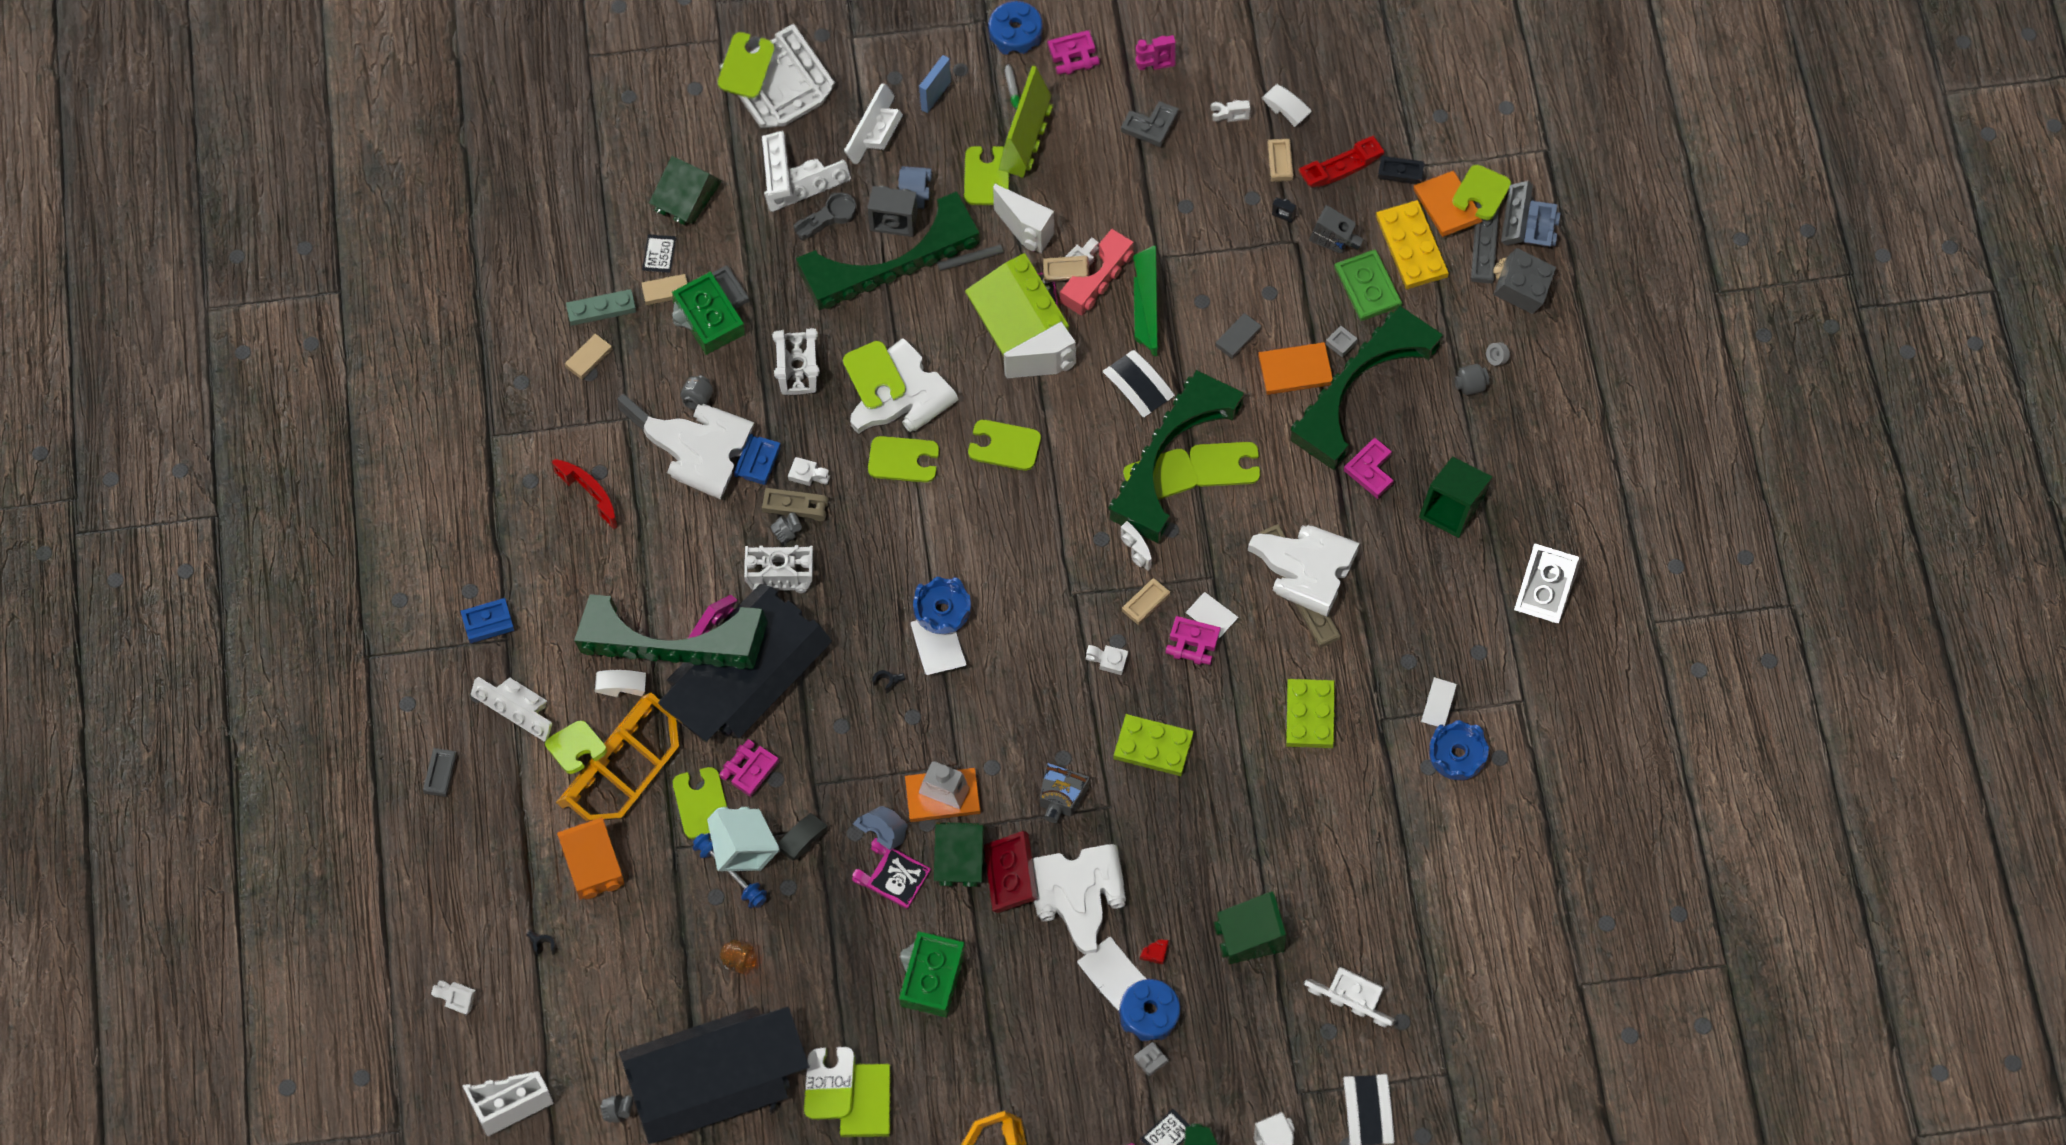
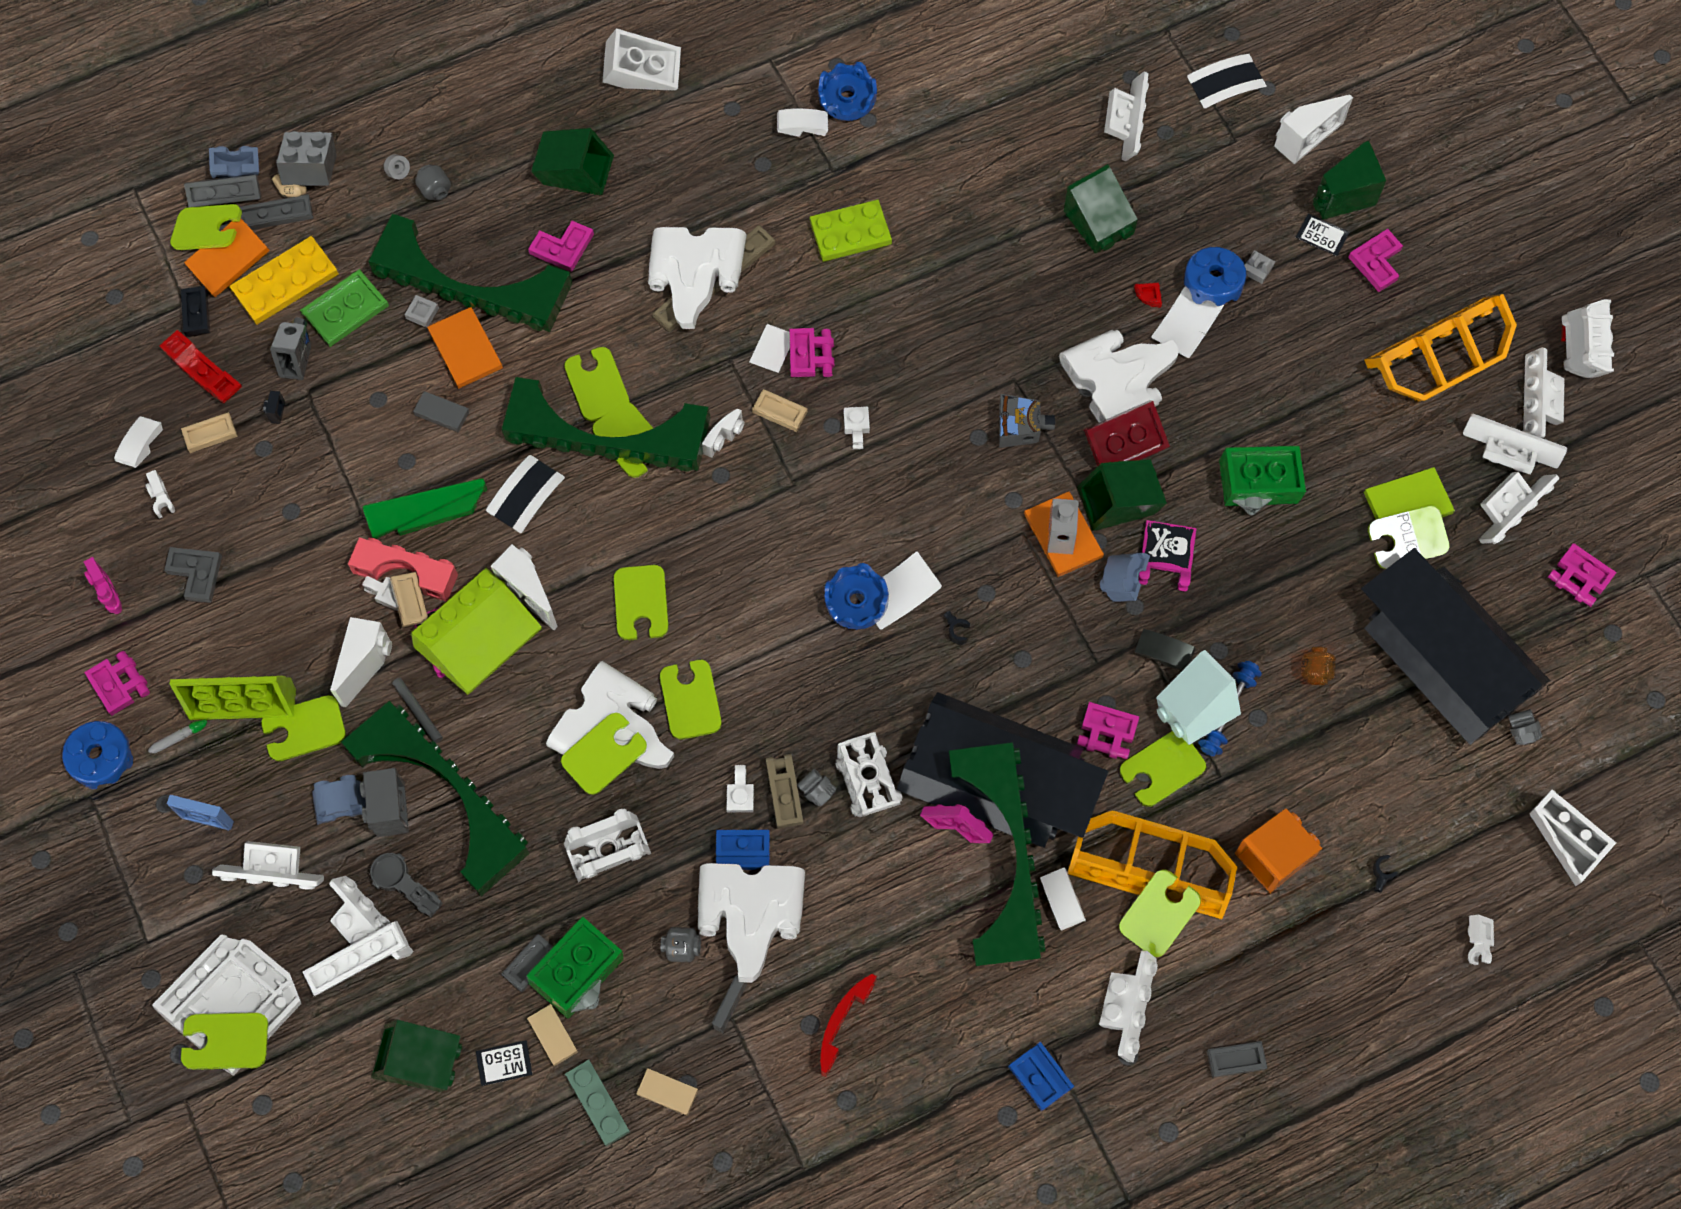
camera: 110 degrees left, 5 degrees up
(1153, 745) = (935, 357): lime plate -> none

